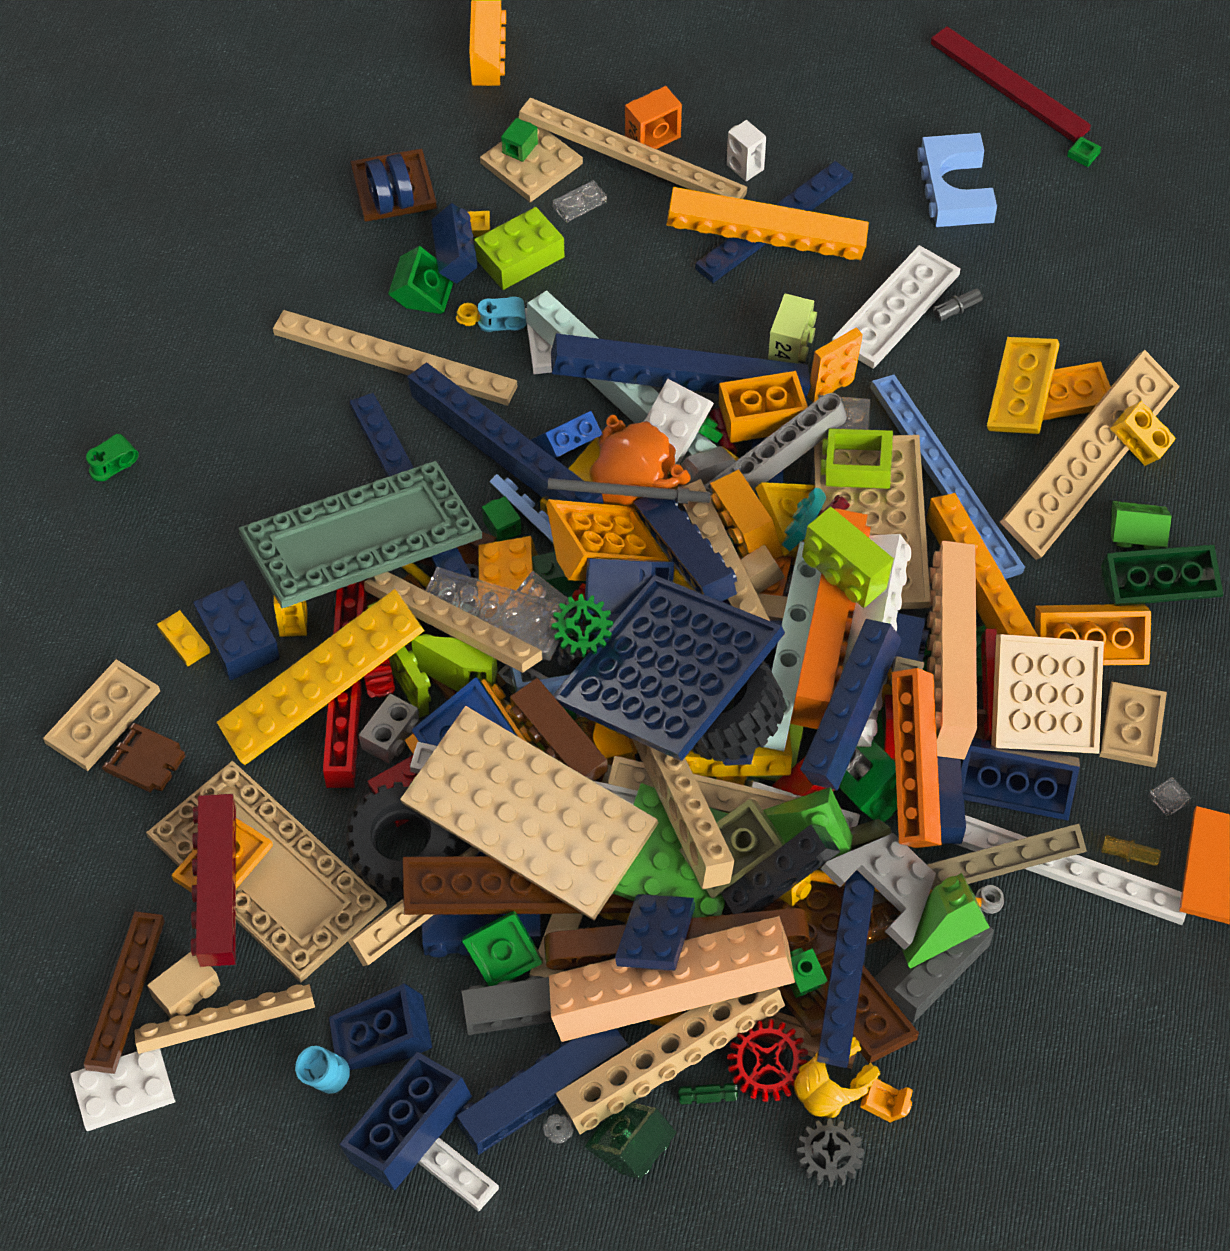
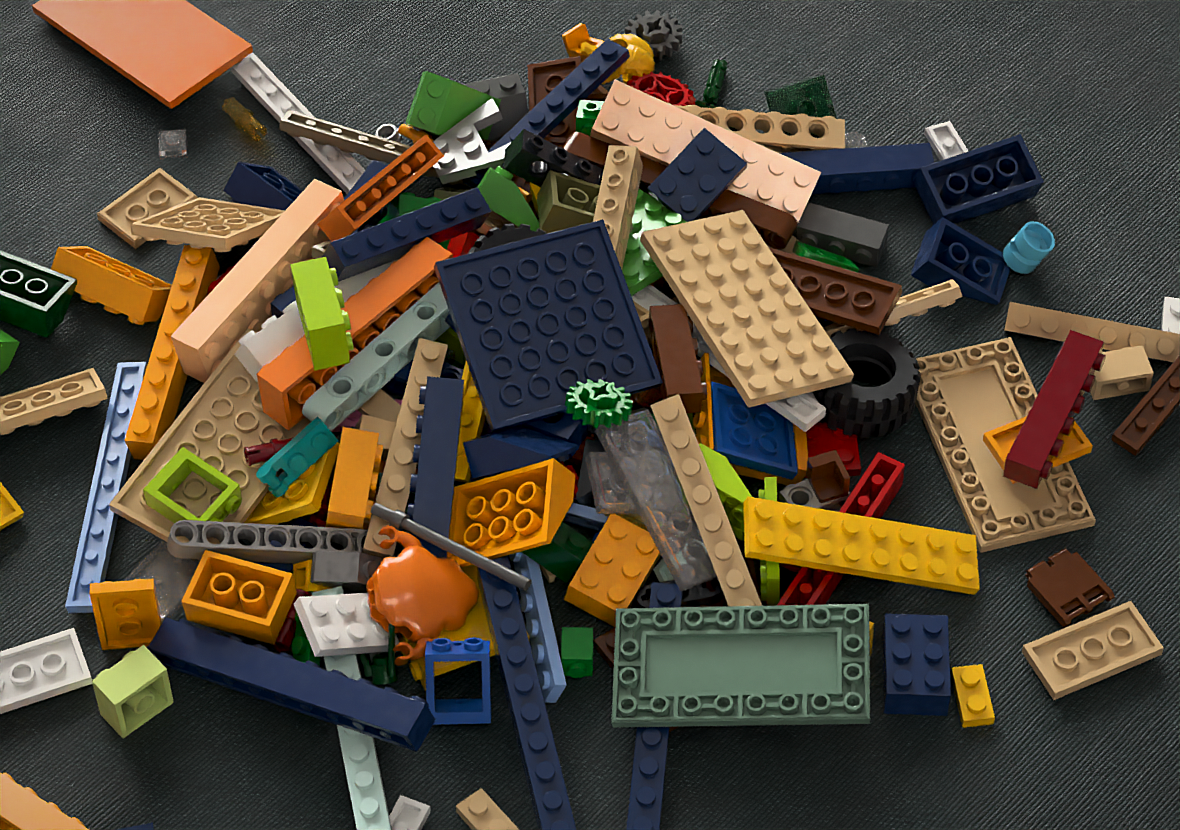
camera: 150 degrees left, 5 degrees down
(381, 729) = (828, 476): none -> reddish brown panel
(736, 1134) = (715, 81): none -> dark green axle

